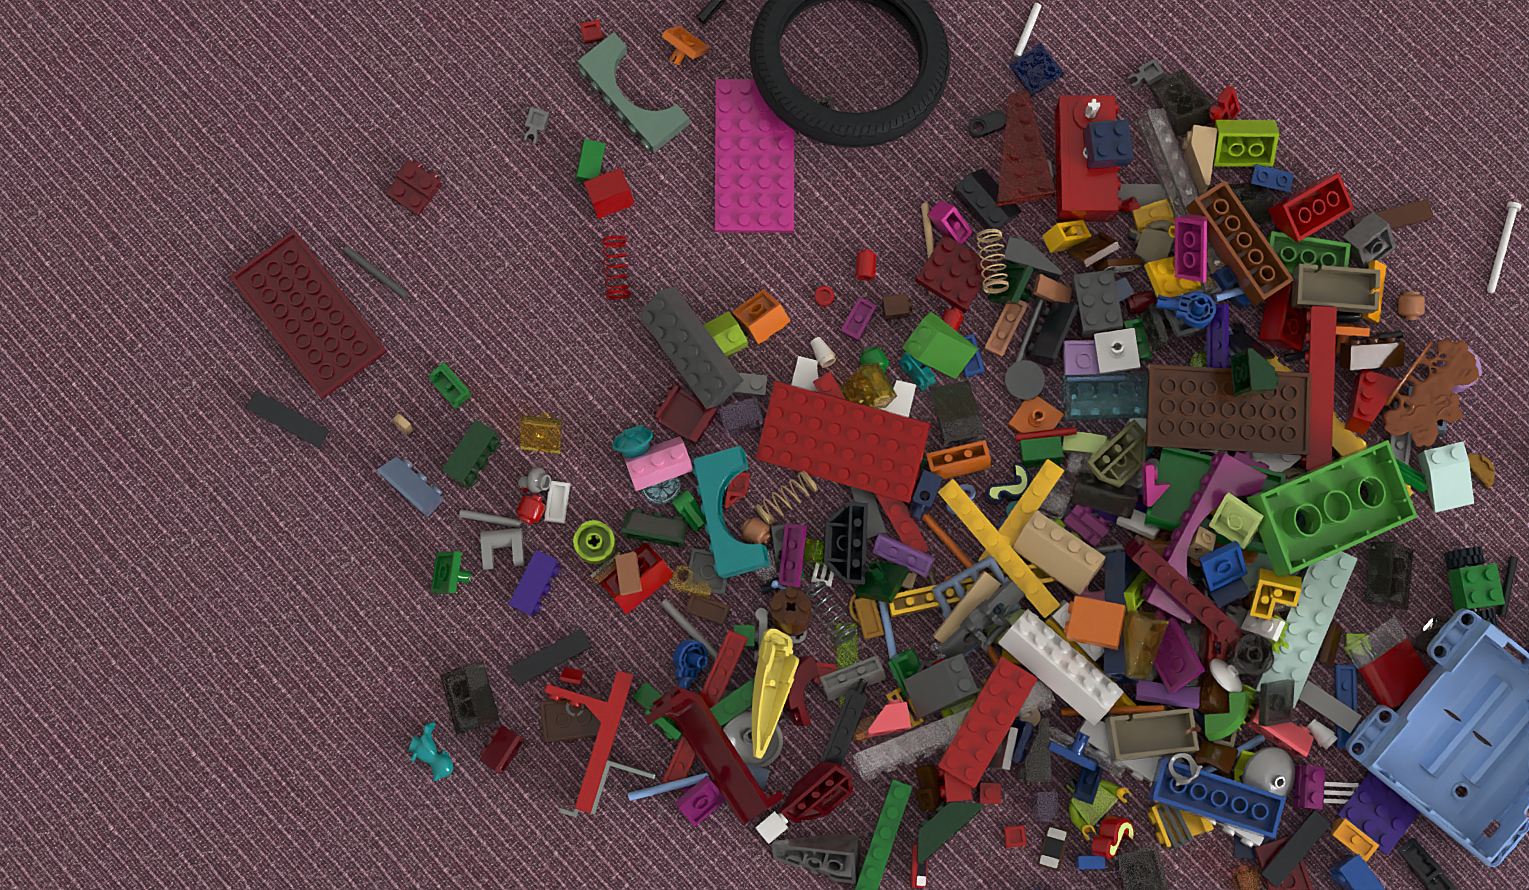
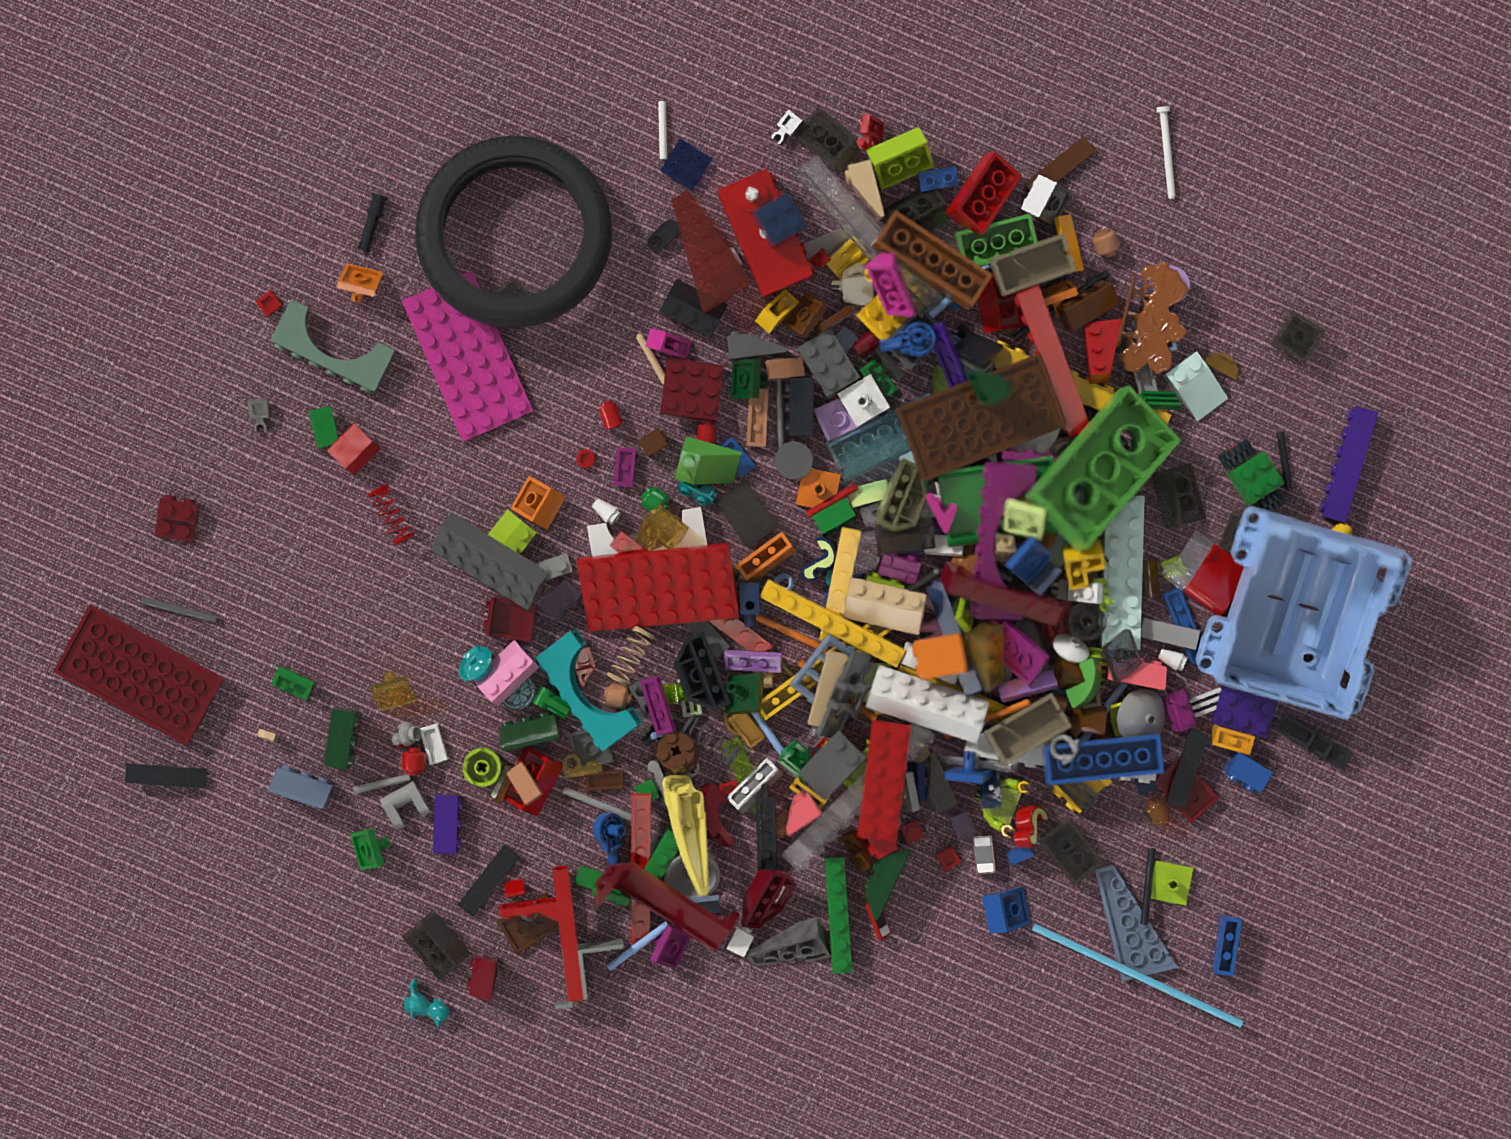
camera: 20 degrees left, 10 degrees up
(993, 281) = (732, 390): tan piece -> none
(1225, 277) = (931, 297): dark blue tile -> none

